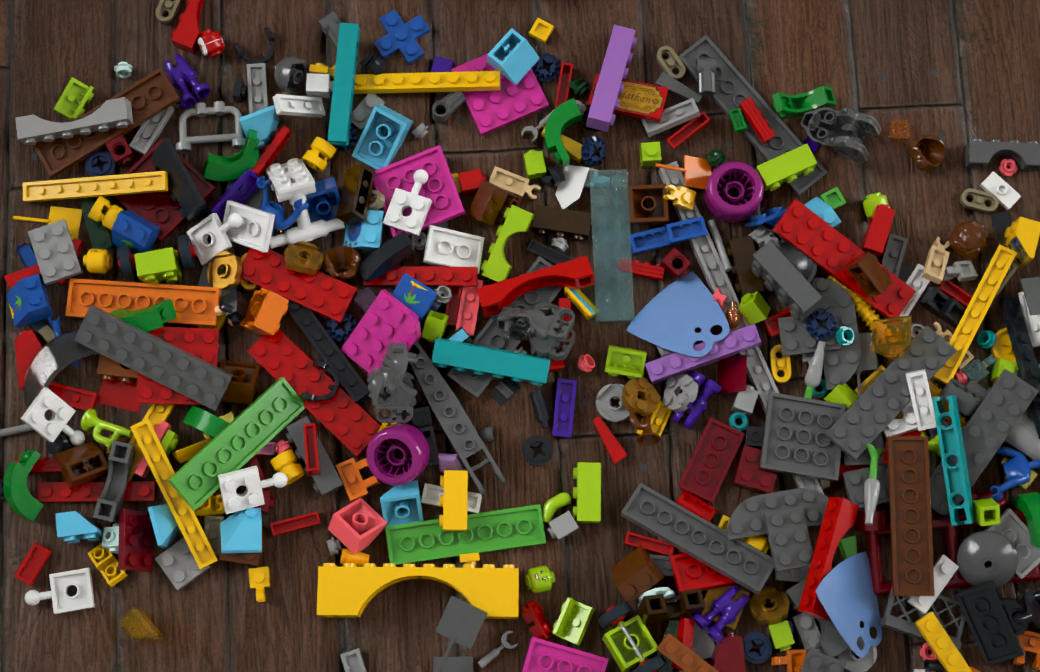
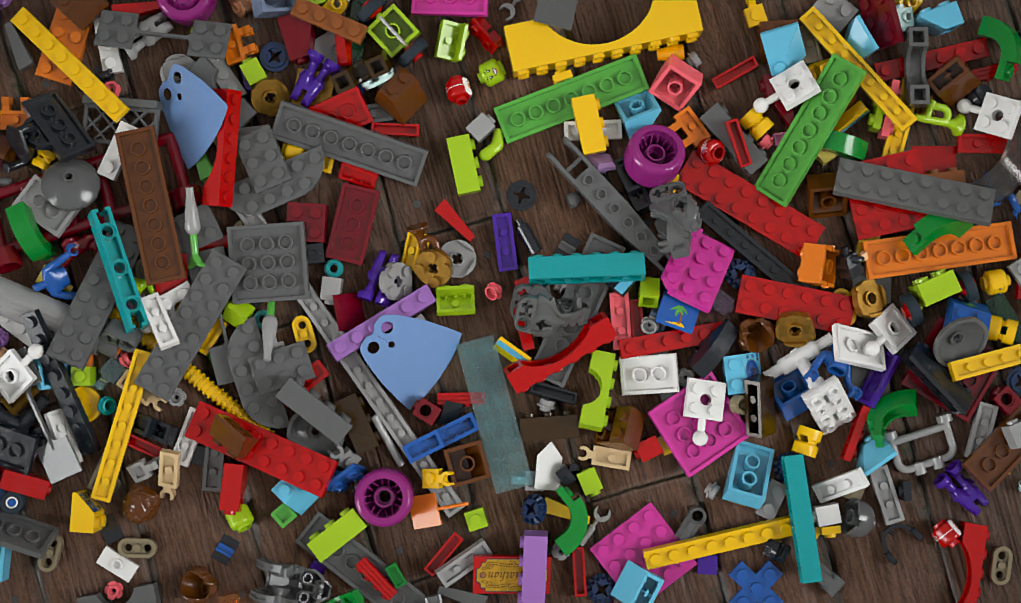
camera: 175 degrees right, 10 degrees up
(149, 207) = (960, 340): none -> dark grey dish
(313, 398) = (730, 214): black piece -> none
(339, 449) = (711, 150): none -> red head
(577, 569) = (458, 90): none -> red head
(579, 86) = (563, 575): dark green plate -> none
(653, 258) = (450, 412): none -> black piece
(715, 158) = (409, 531): dark green plate -> none
(720, 298) = (376, 384): coral piece -> none
(733, 315) = (359, 368): clear orange cylinder -> none
(754, 307) = (340, 382): lime brick -> none
(821, 334) = (261, 377): dark blue gear -> none
(848, 334) = (241, 370): teal plate -> none
(892, 336) = (199, 381): clear yellow slope -> none
(895, 182) = (225, 549): none -> black piece
(986, 512) = (78, 227): lime brick -> none
(1011, 591) = (43, 159): none -> yellow wheel

